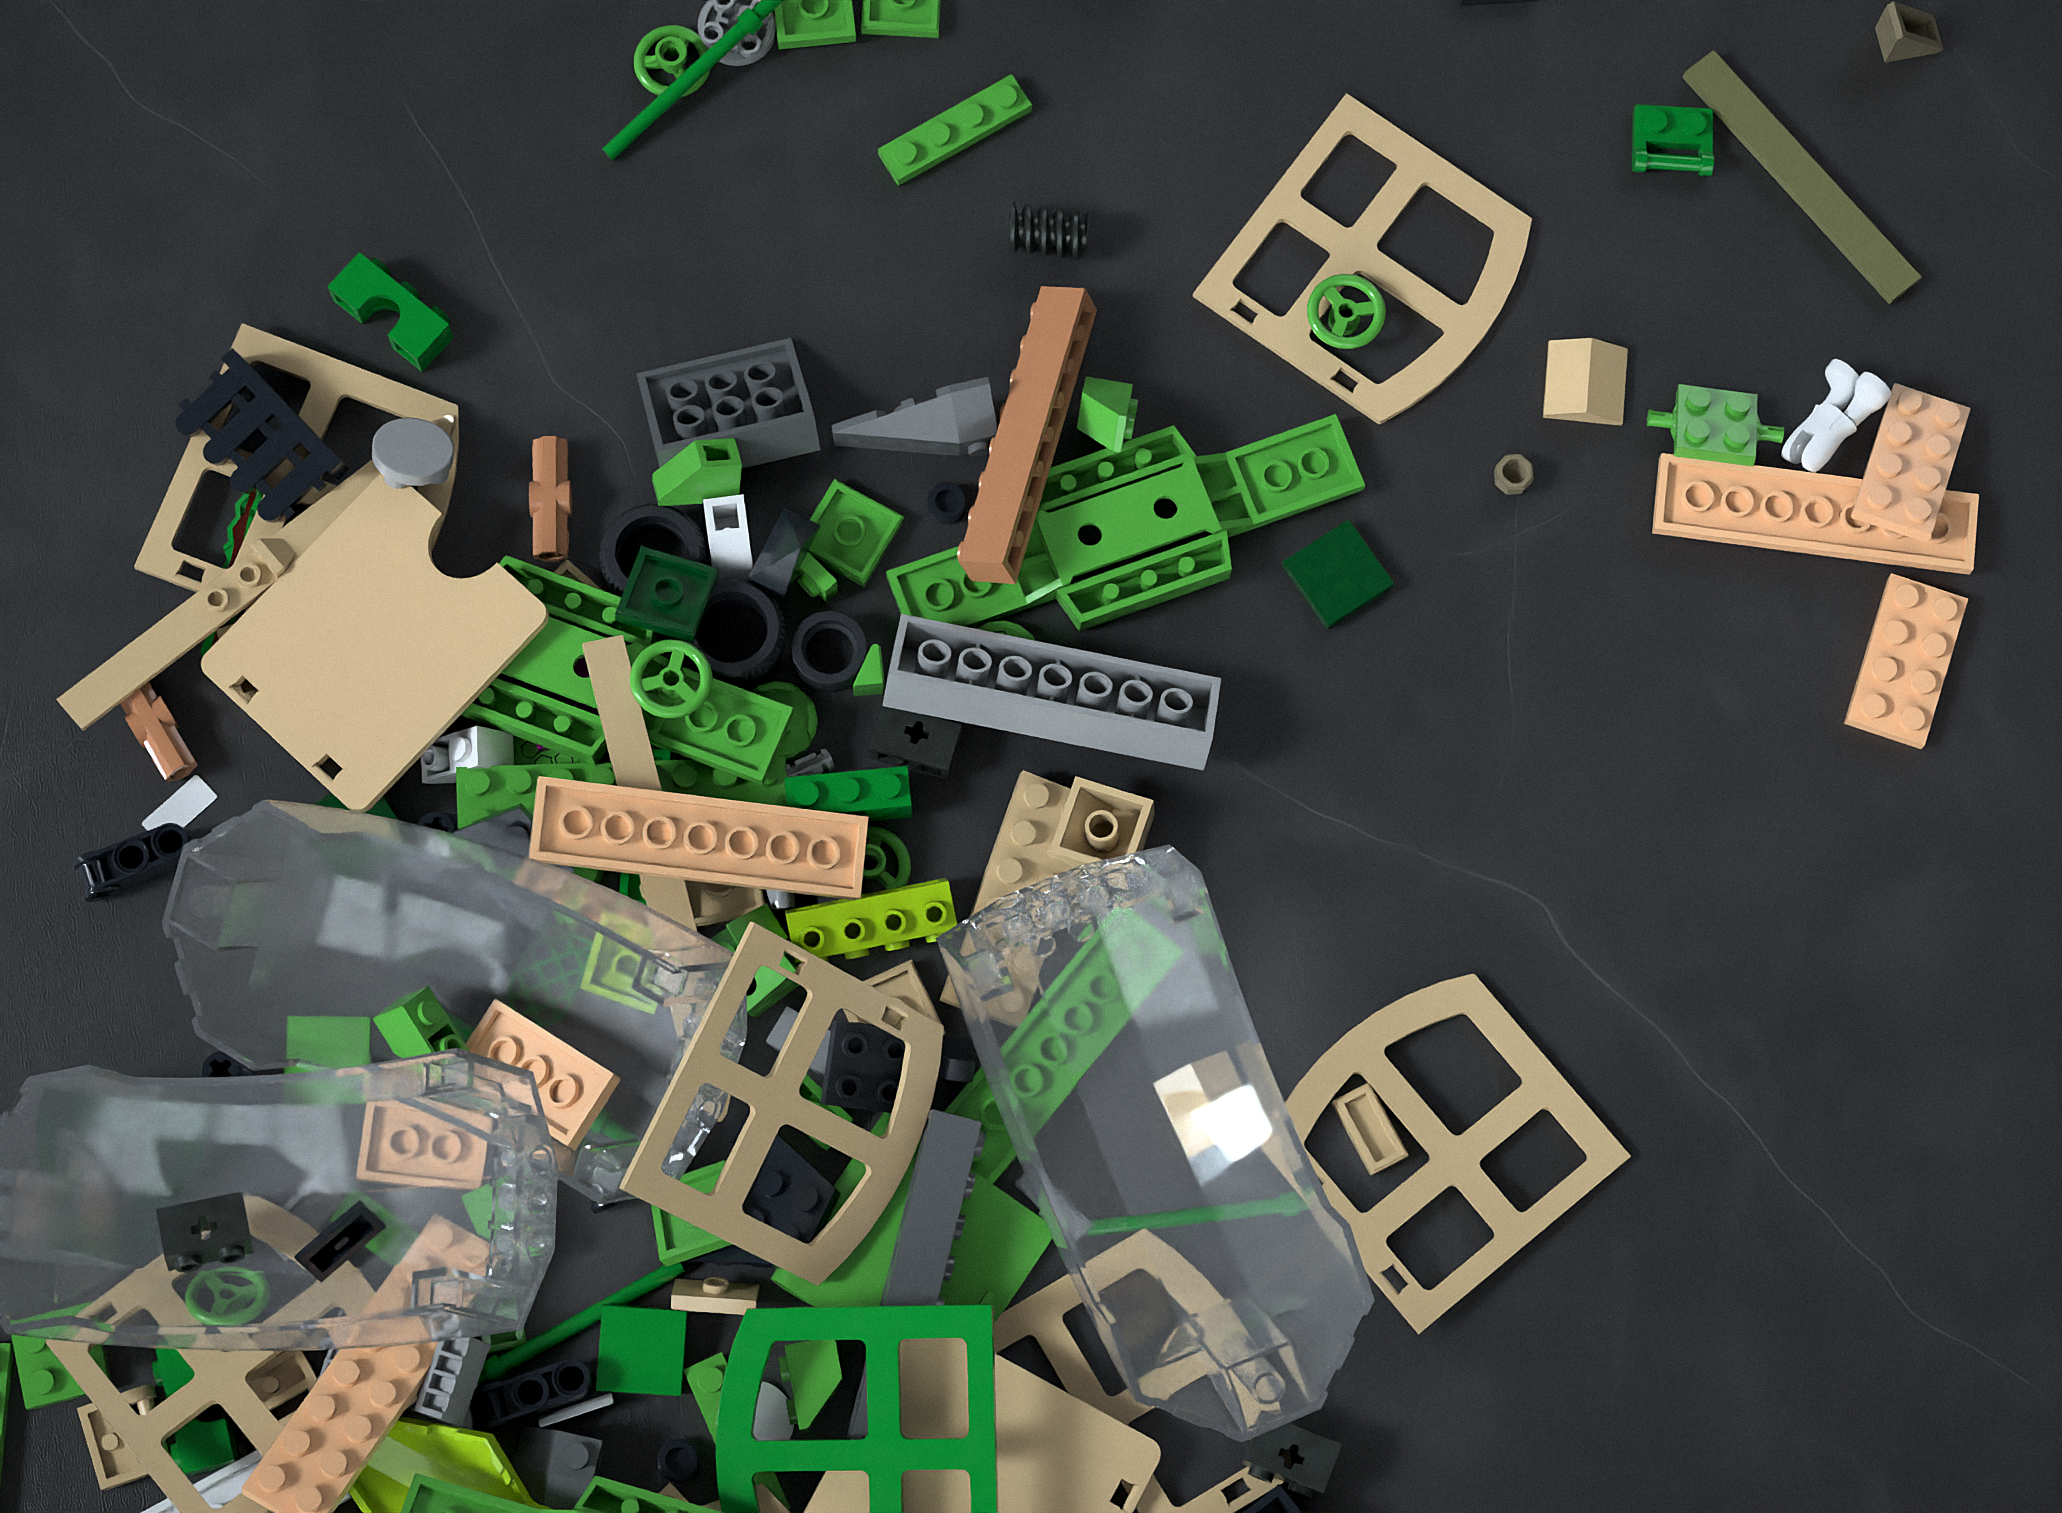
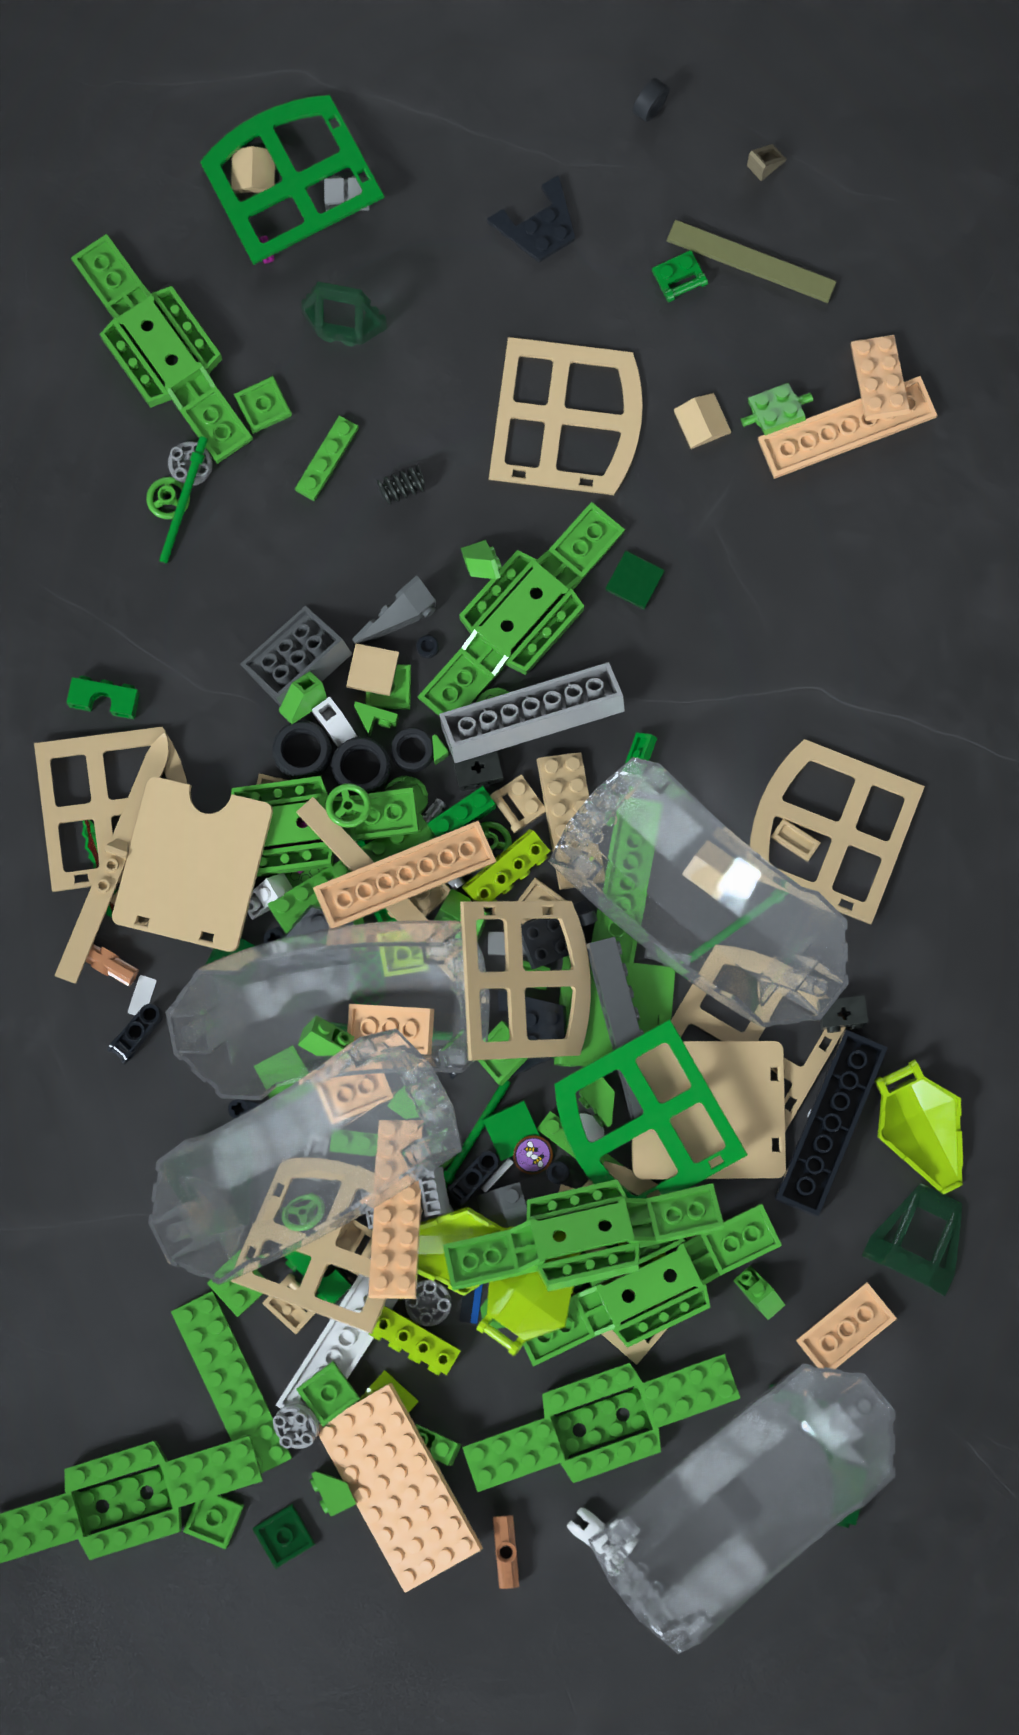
camera: 20 degrees left, 5 degrees up
(182, 1228) = (284, 1177): pearl dark grey brick -> none
(272, 453) = (66, 793): black fence -> none
(340, 1241) = (345, 1157): black slope -> none
(412, 453) = (157, 762): light grey tile -> none
(550, 499) = (234, 748): nougat piece -> none
(653, 1408) = (532, 1155): none -> sticker
(667, 594) = (321, 765): dark green tile -> none
(714, 1296) = (532, 1086): tan plate -> none
(784, 552) = (364, 714): black slope -> none
(838, 491) = (372, 669): none -> tan tile
(964, 827) = (524, 800): none -> tan plate
(1027, 435) = (450, 593): nougat brick -> none
(1101, 824) = (590, 764): tan slope -> none
(1203, 843) = (642, 747): none -> green plate
(1341, 325) = (568, 456): bright green piece -> none
(1513, 474) = (692, 485): dark tan tile -> none
(1827, 425) = (830, 381): white piece -> none
(1906, 661) = (928, 476): light nougat plate -> none

